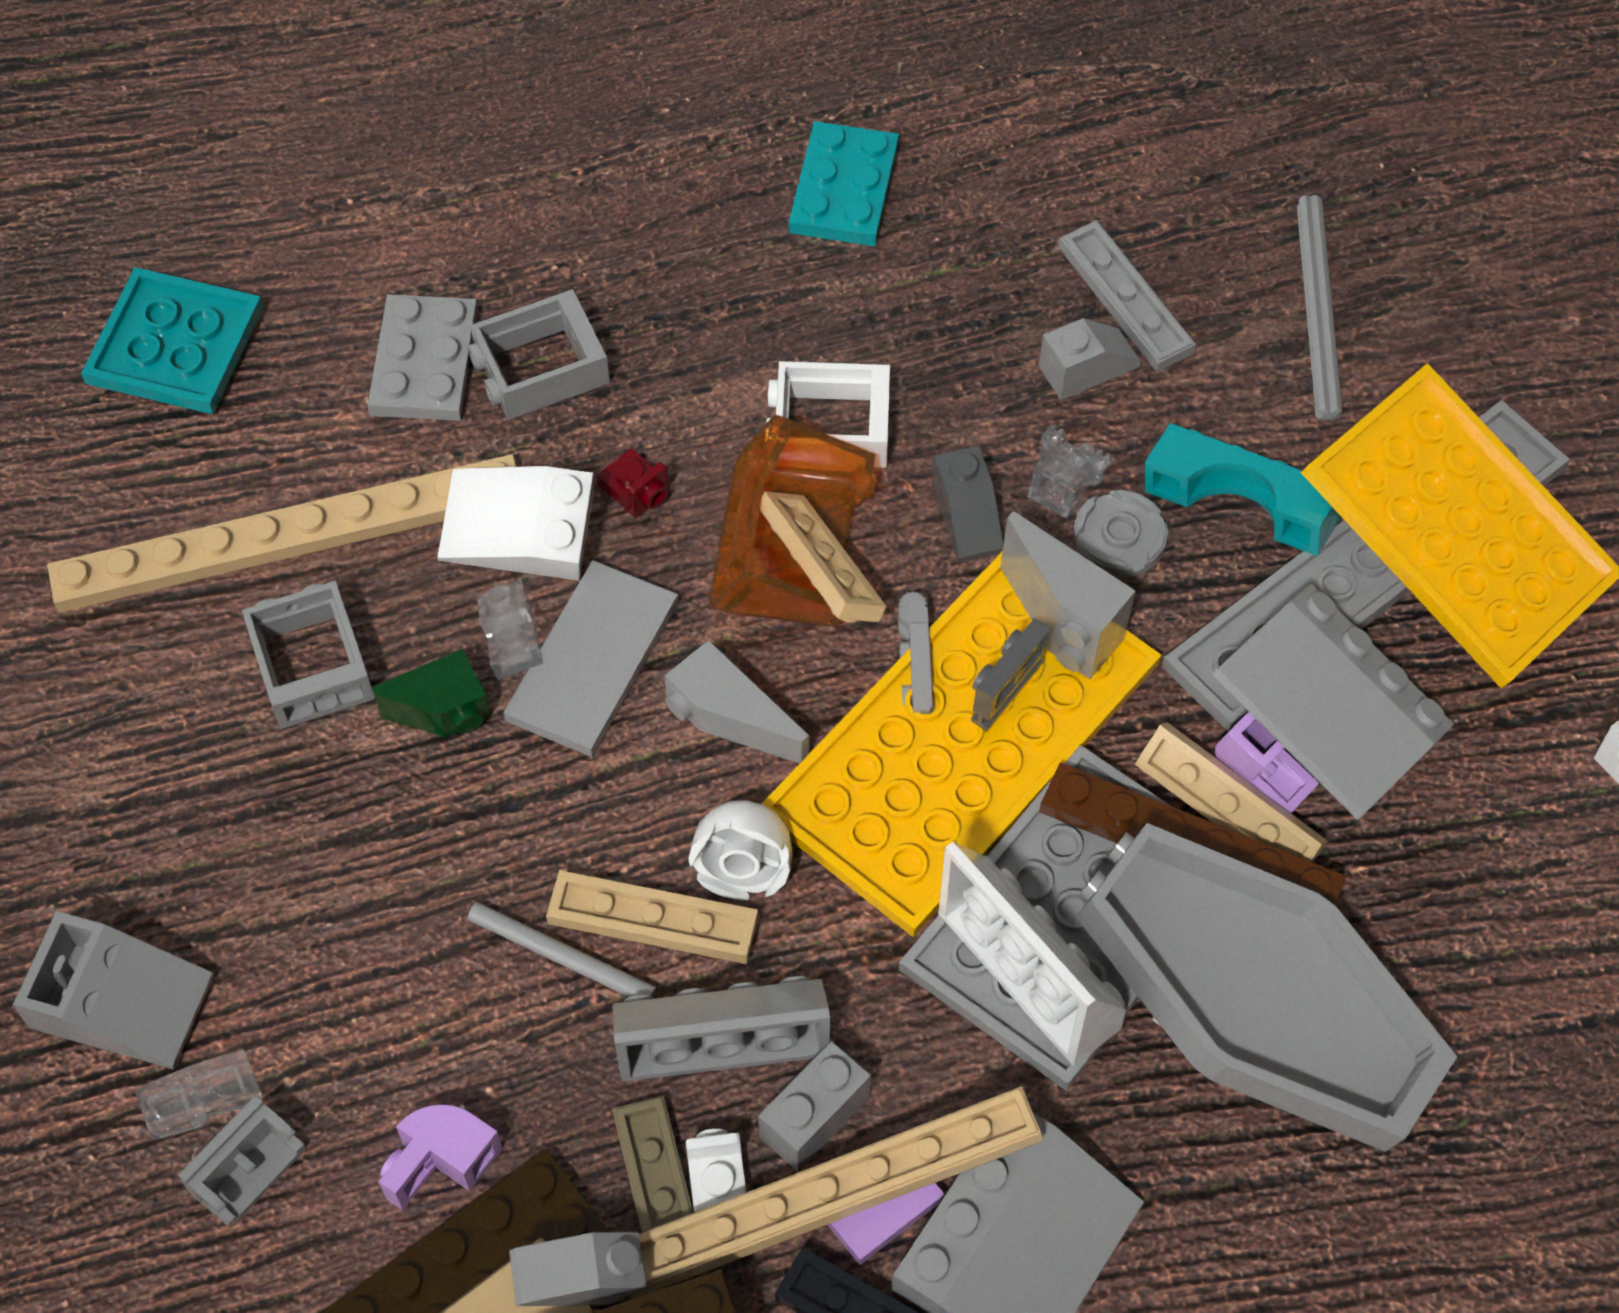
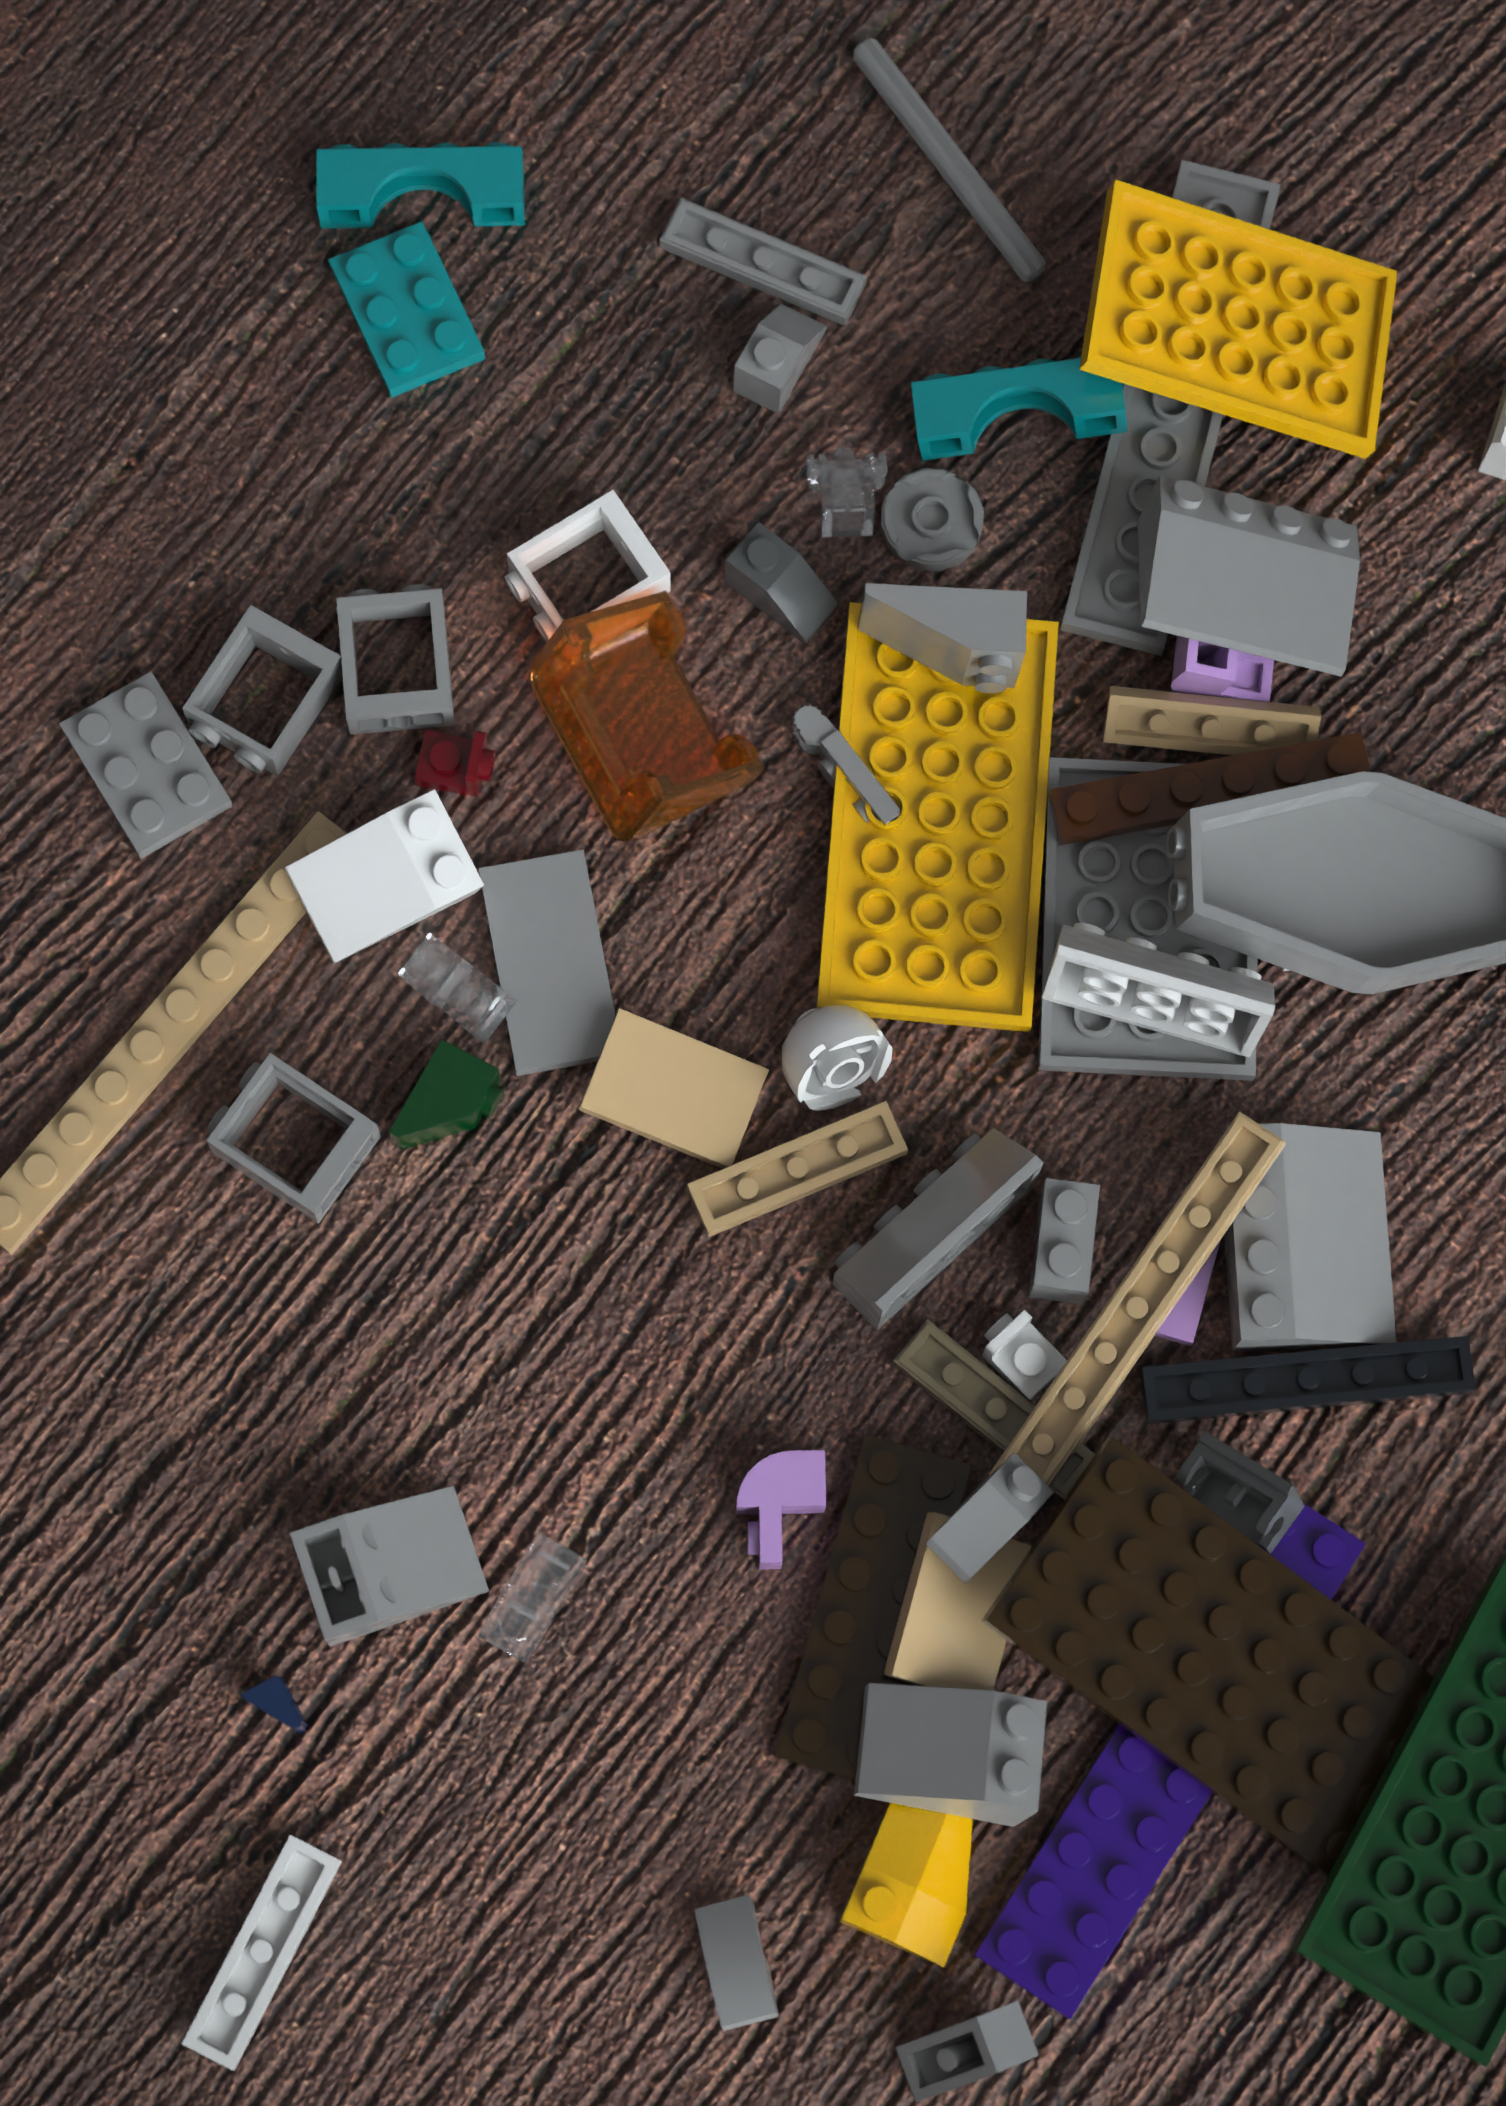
camera: 40 degrees left, 15 degrees up
(242, 1162) = (621, 1627): light grey hinge -> none
(559, 952) = (740, 1255): light grey bar -> none
(606, 799) = (673, 1089): none -> tan tile
(629, 425) = (400, 709): none -> light grey window
(730, 706) = (710, 926): light grey slope -> none
(822, 557) = (699, 730): tan plate -> none
(874, 87) = (360, 182): none -> teal arch
(1002, 683) = (952, 753): dark grey plate -> none

